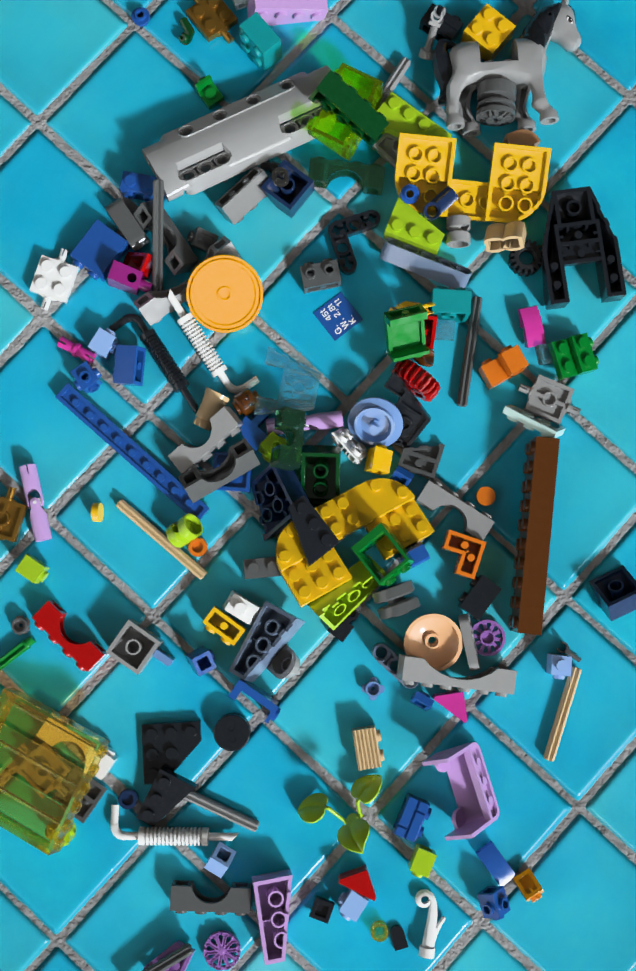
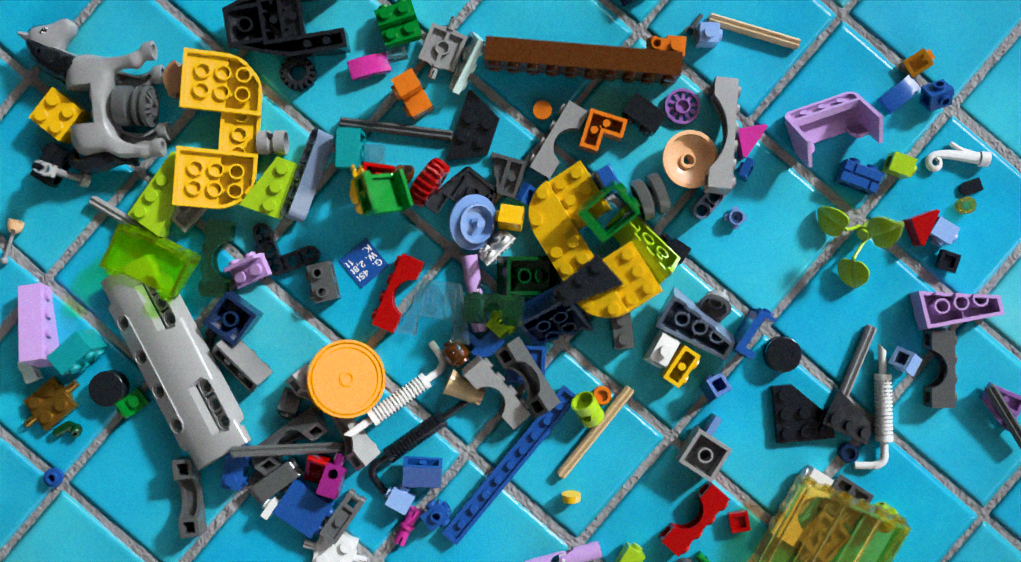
camera: 90 degrees left, 5 degrees up
(63, 681) = (738, 521): none -> red plate
(88, 286) = (342, 517): none -> dark grey plate
(96, 144) = (192, 516): none -> dark grey arch
(102, 216) = (269, 506): none -> white plate
(222, 950) = (988, 355): medium lavender wheel -> none
(225, 70) = (108, 387): none -> black head
(281, 171) = (216, 325): clear smoke bush -> none
(286, 337) = (387, 314): none -> red arch
(335, 205) = (248, 270): none -> lavender bracket
(349, 107) = (147, 257): dark green wedge -> none
(367, 748) = (793, 222): tan brick -> none
(405, 198) = (236, 199): blue plate -> none
(440, 203) = (244, 160): dark blue piece -> none
(467, 428) = (474, 130): none -> black wing
(469, 642) = (688, 123): light grey beam -> none
(505, 236) = (277, 94): tan brick -> none
(550, 625) = (670, 43): none -> orange brick

